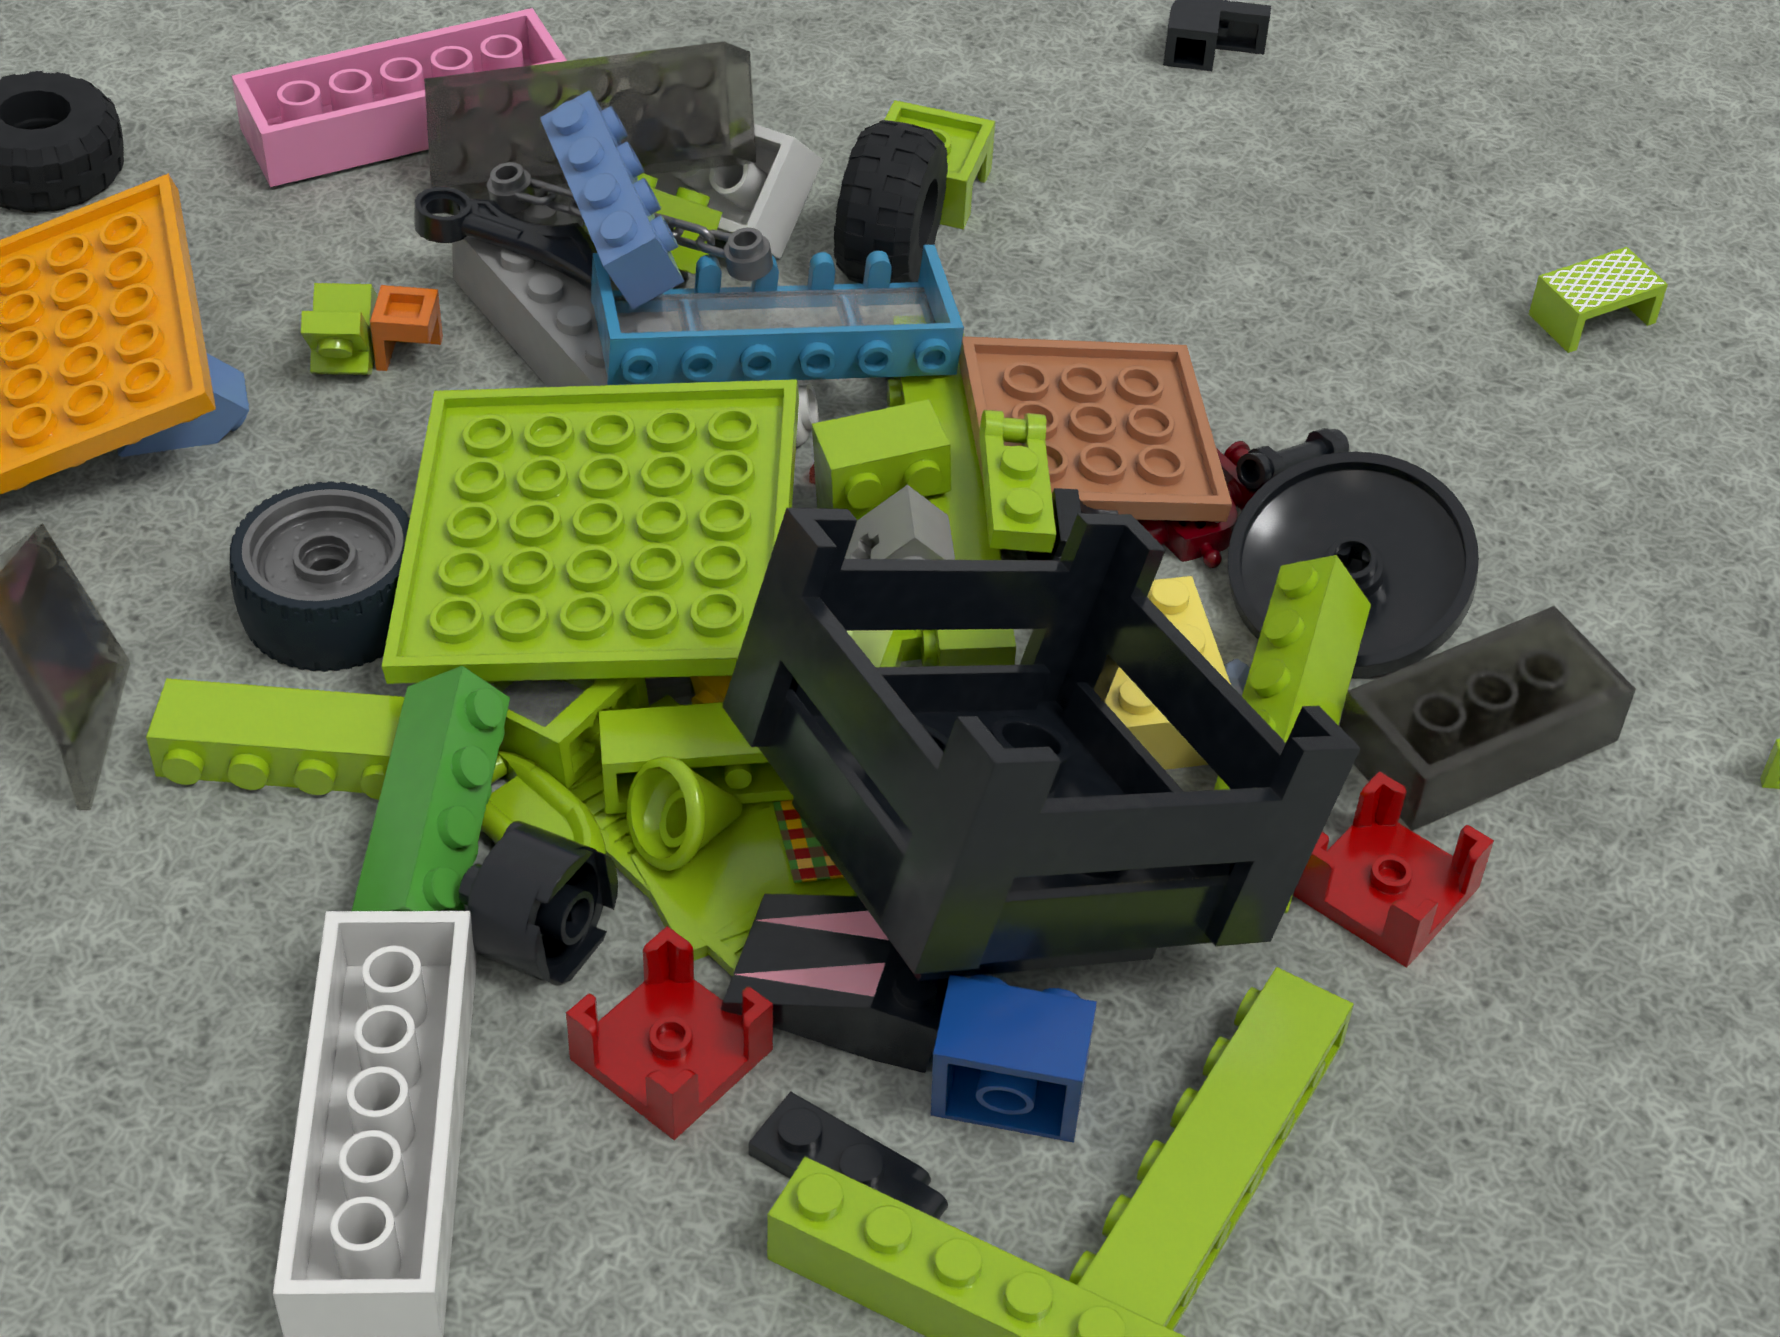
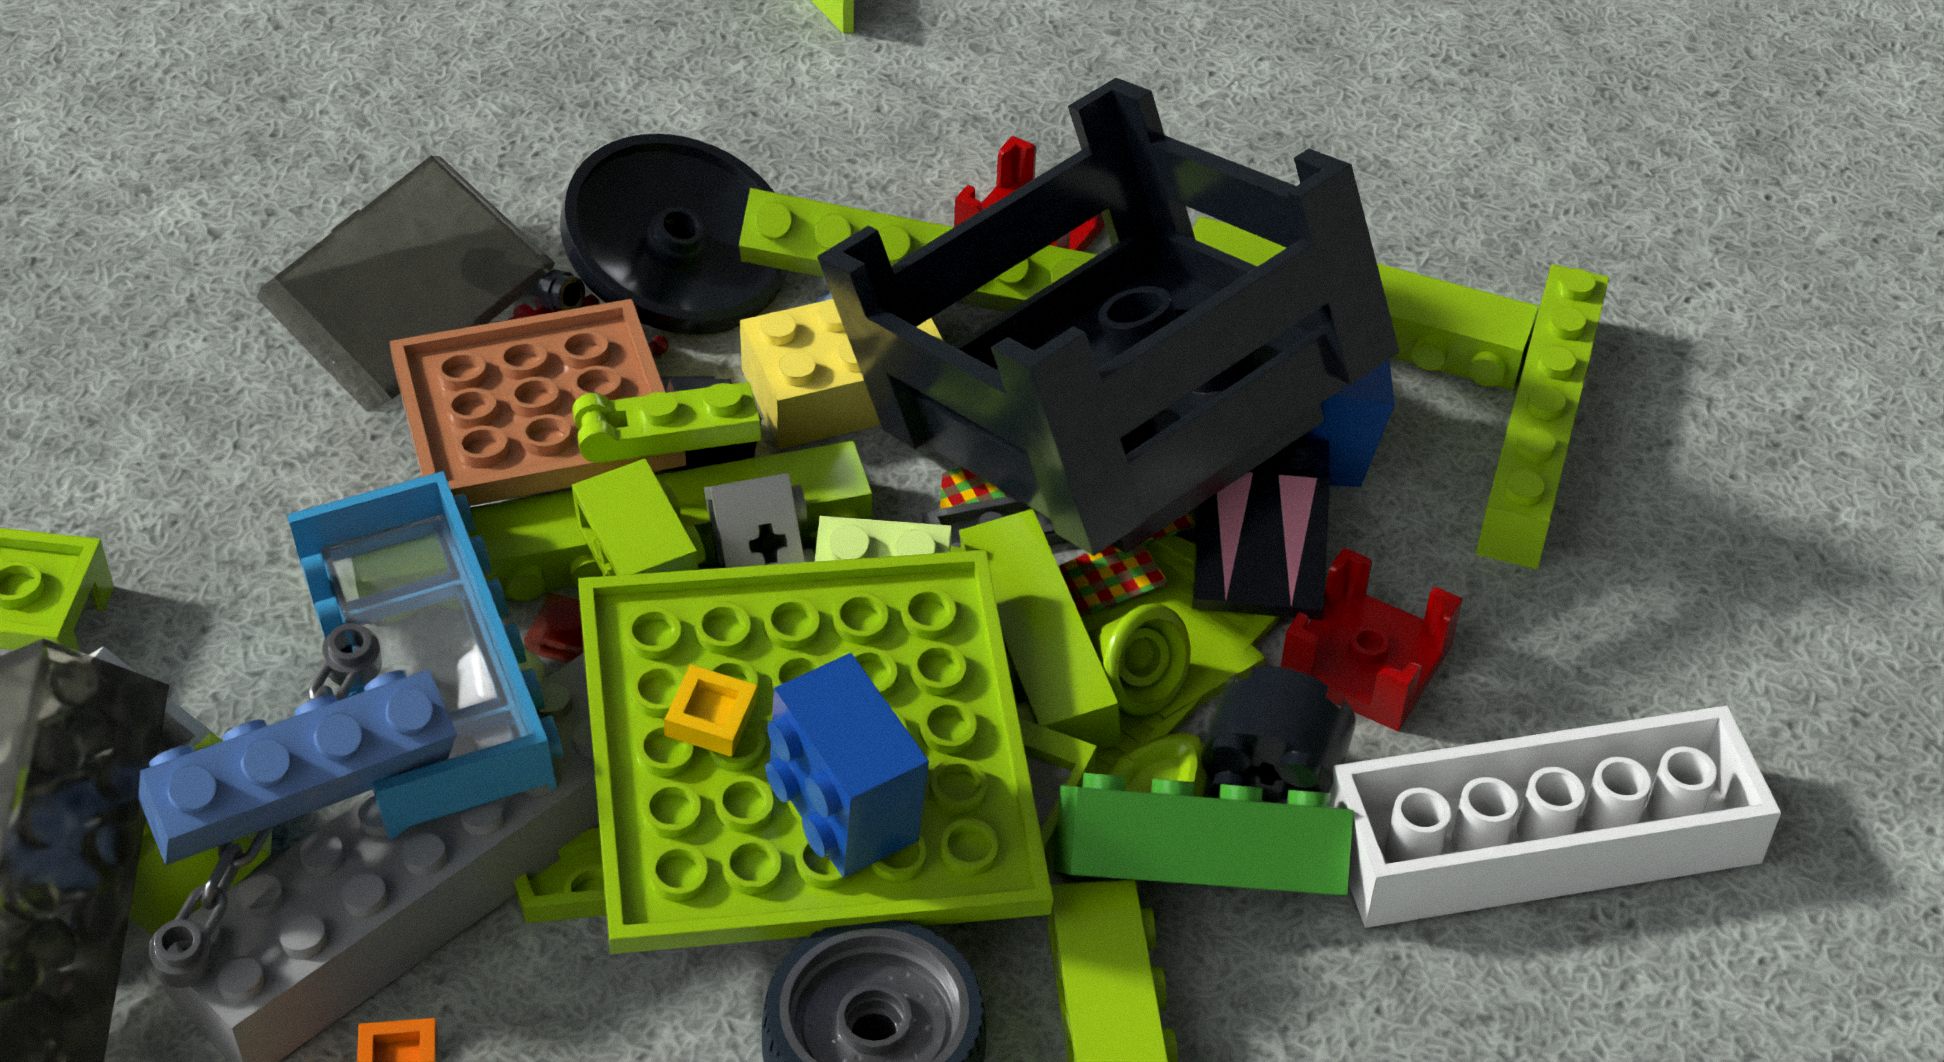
camera: 100 degrees left, 0 degrees up
(507, 488) = (846, 765): none -> blue brick
(558, 246) = (284, 897): black piece -> none
(617, 437) = (710, 710): none -> yellow plate
(804, 1130) = (1438, 527): black hinge -> none
(890, 199) = (162, 592): black tyre -> none
(1308, 383) = (400, 268): none -> clear smoke piece
(1487, 715) = (847, 143): clear smoke brick -> none
(1593, 288) = (242, 88): lime panel -> none

